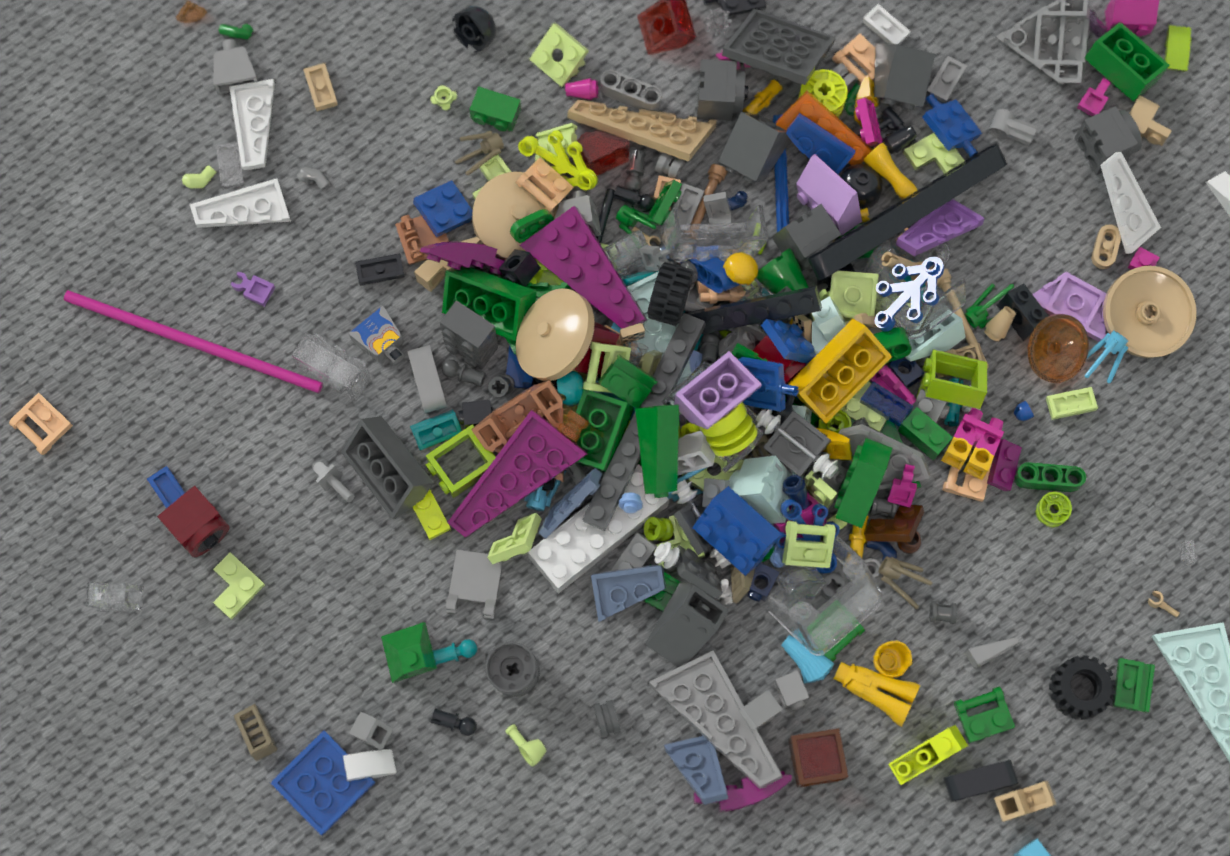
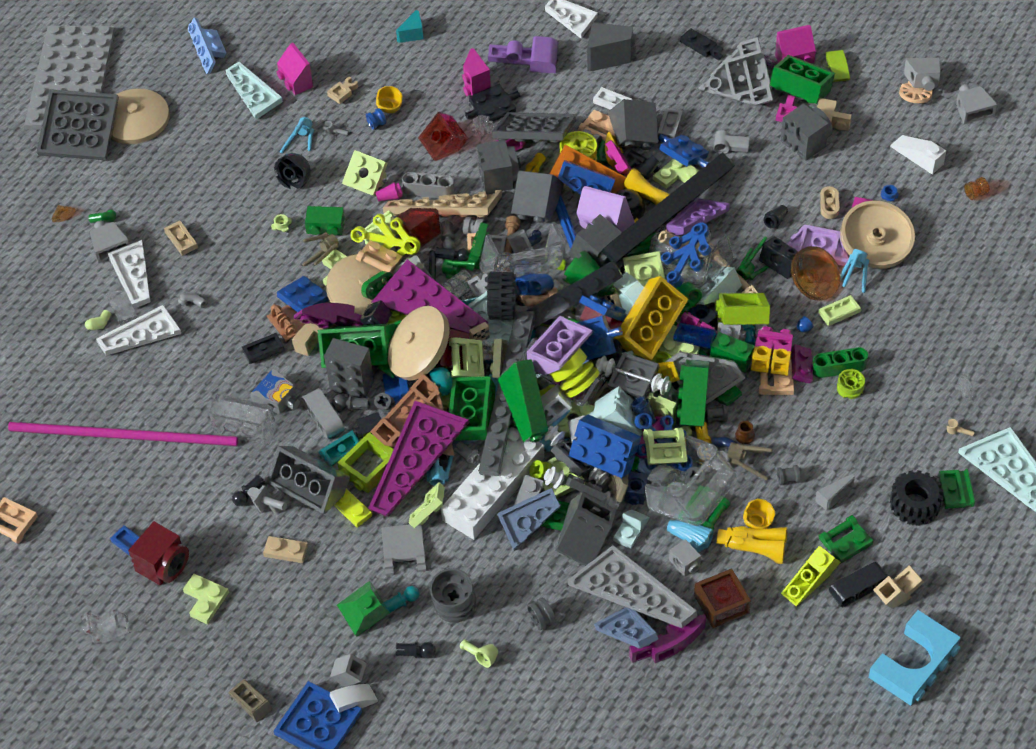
camera: 10 degrees left, 20 degrees down
(254, 290) = (166, 385): medium lavender plate -> none
(305, 466) = (240, 497): none -> black pin
(341, 548) = (285, 549): none -> tan plate
(570, 501) = (466, 462): sand blue wing -> none
(573, 425) = (452, 402): clear orange wheel -> none
(627, 381) = (486, 362): green plate -> none
(630, 502) = (513, 449): light blue plate -> none
(741, 268) = (552, 271): yellow hair -> none
(741, 630) = (631, 528): none -> light aqua slope
(761, 710) = (666, 571): light grey slope -> none
(899, 529) = (736, 419): reddish brown plate -> none
(903, 490) = (727, 393): dark pink plate -> none
(1000, 324) = (766, 268): tan cone -> none
(1034, 250) = (774, 217): none -> black cone
(1130, 207) = (837, 168): white wing -> none
(1187, 249) = (889, 193): none -> blue plate

